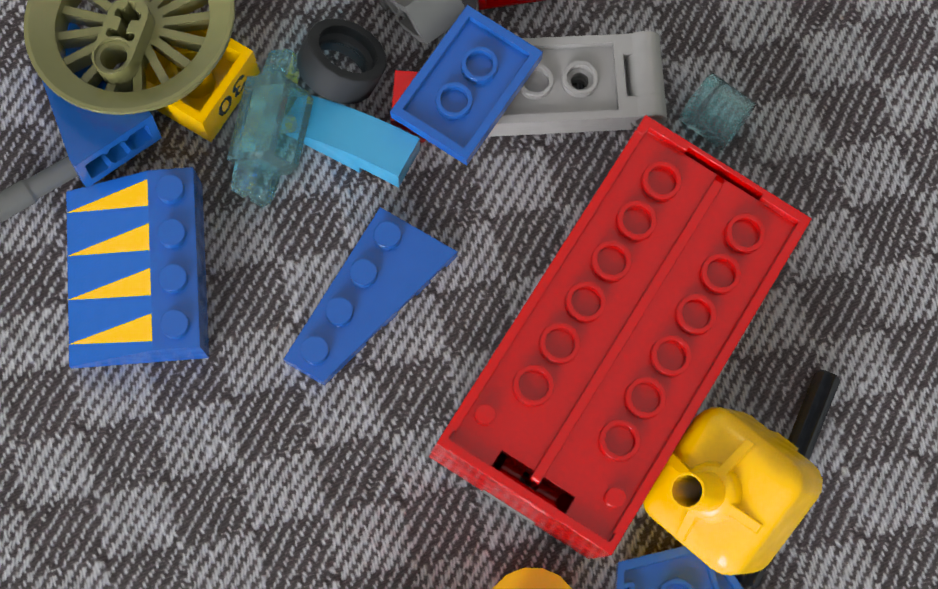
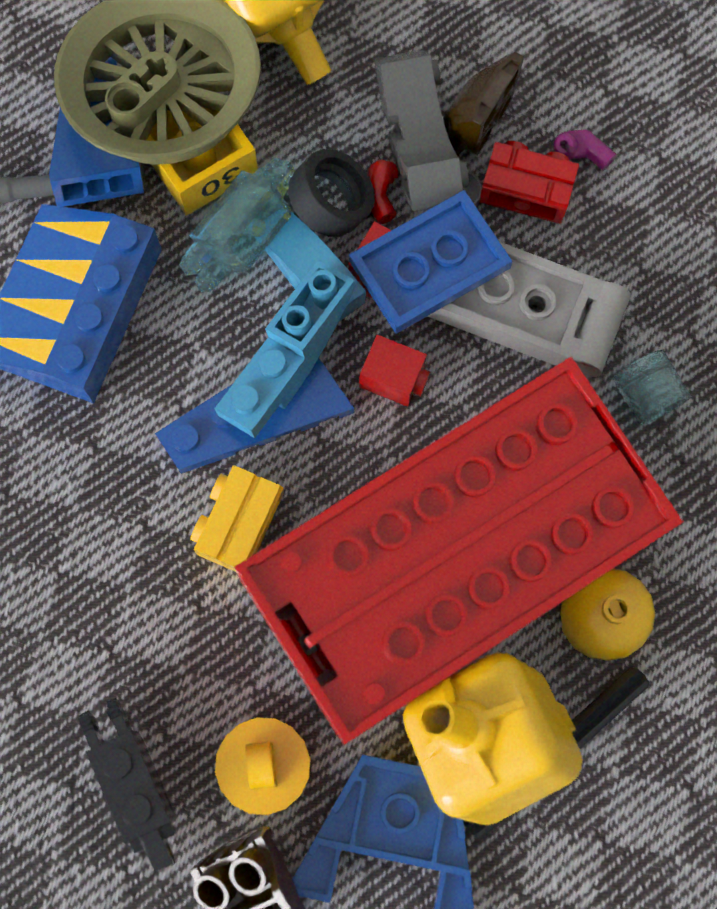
camera: 25 degrees right, 0 degrees up
(376, 225) = (290, 351): none -> dark azure slope
(378, 23) = (381, 175): none -> red arm
(401, 403) = (238, 518): none -> yellow brick
(478, 201) = (394, 371): none -> red brick
(779, 337) = (609, 616): none -> yellow cylinder

